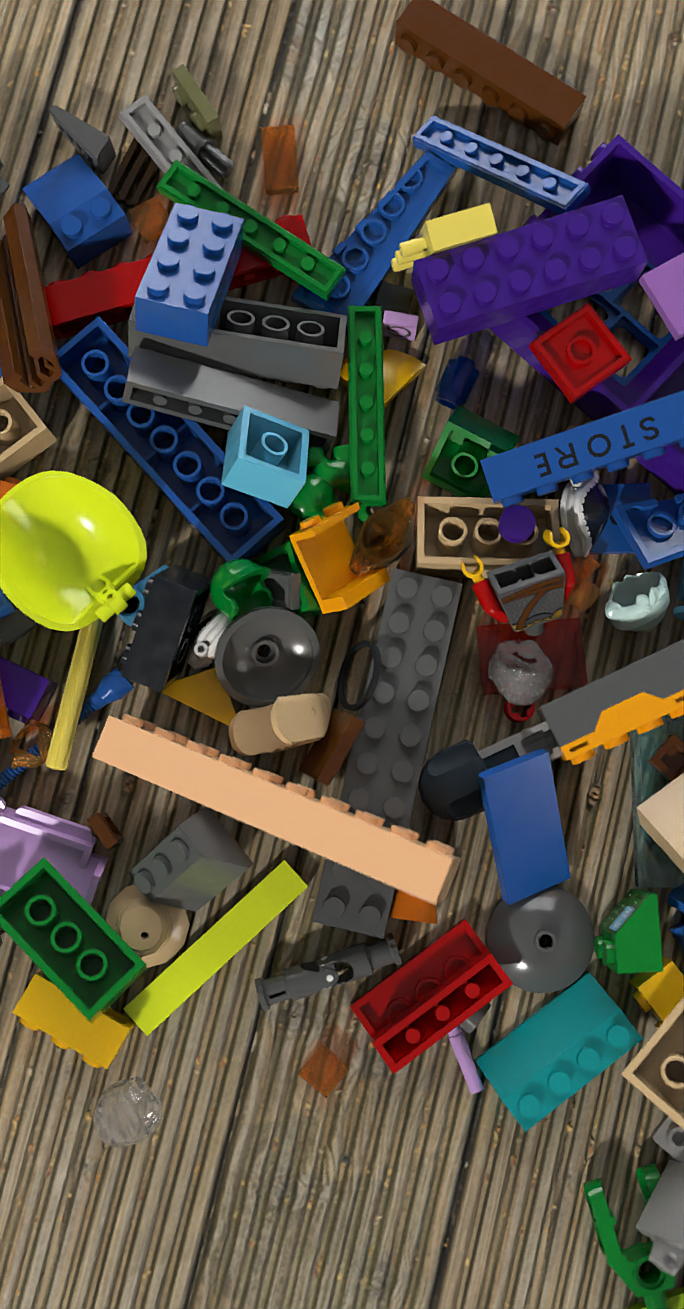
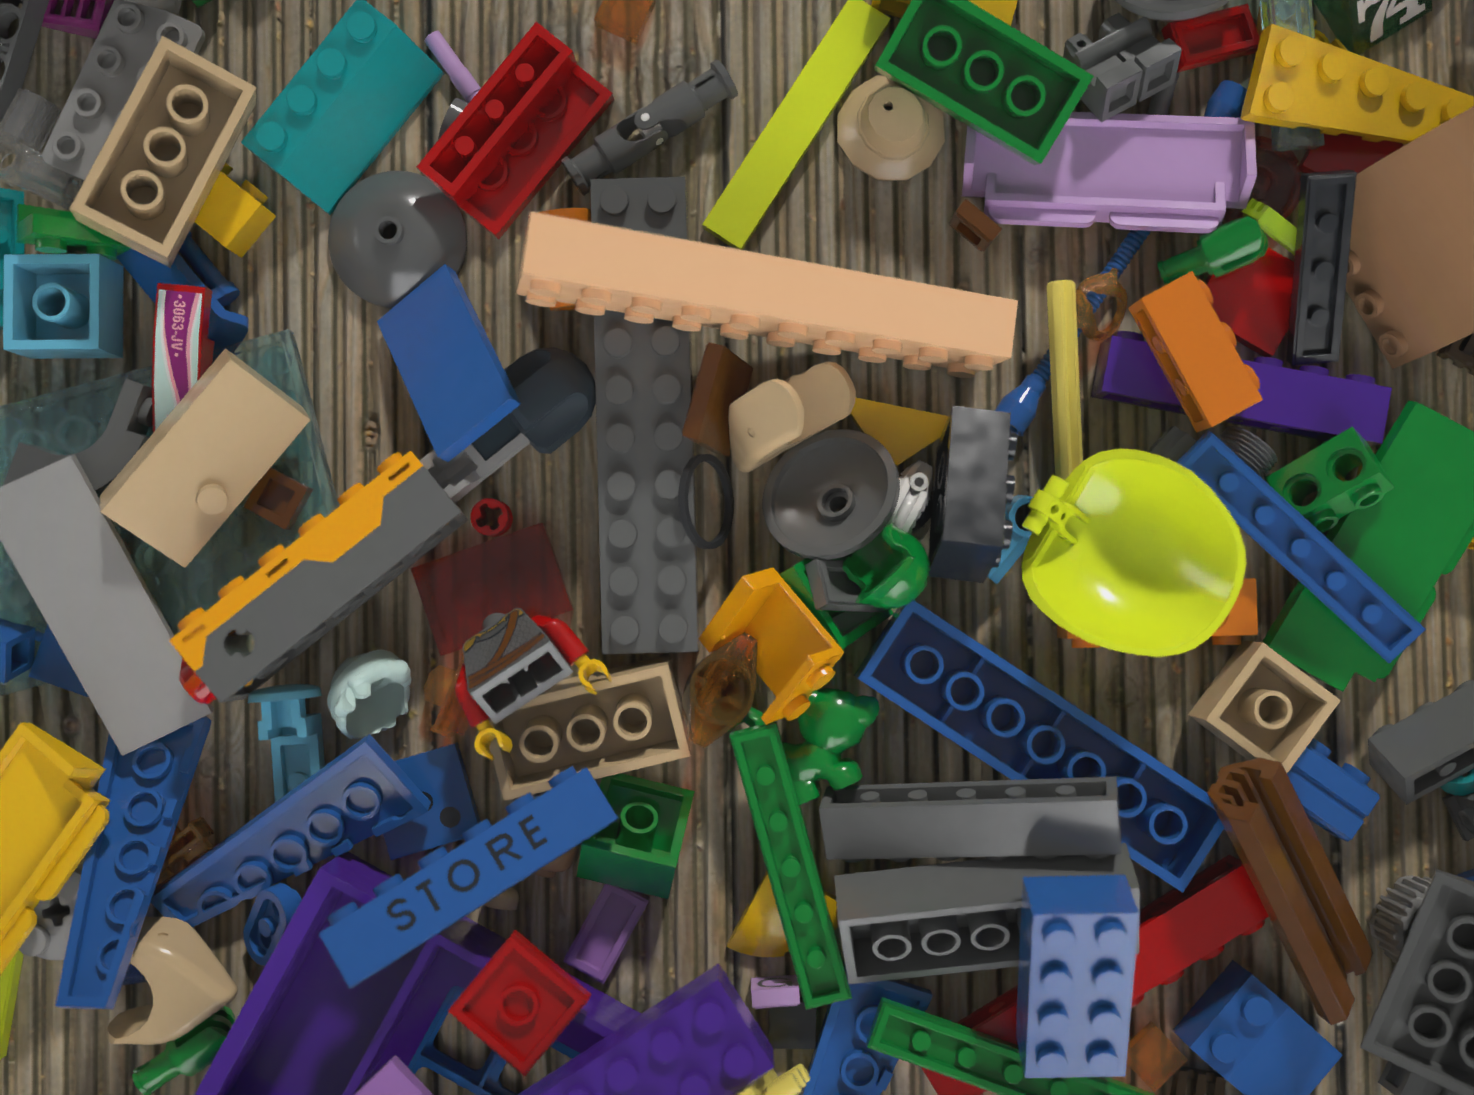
camera: 170 degrees right, 5 degrees up
(191, 864) = (854, 206): dark grey slope -> none
(266, 457) = (903, 751): medium azure brick -> none
(456, 382) = (678, 931): clear blue brick -> none
(508, 396) = (606, 931): none -> medium lavender tile
(516, 524) = (550, 750): dark purple tile -> none
(517, 679) = (499, 549): clear hair -> none
(584, 513) = (466, 790): white hat -> none
(631, 935) = (283, 264): green slope -> none

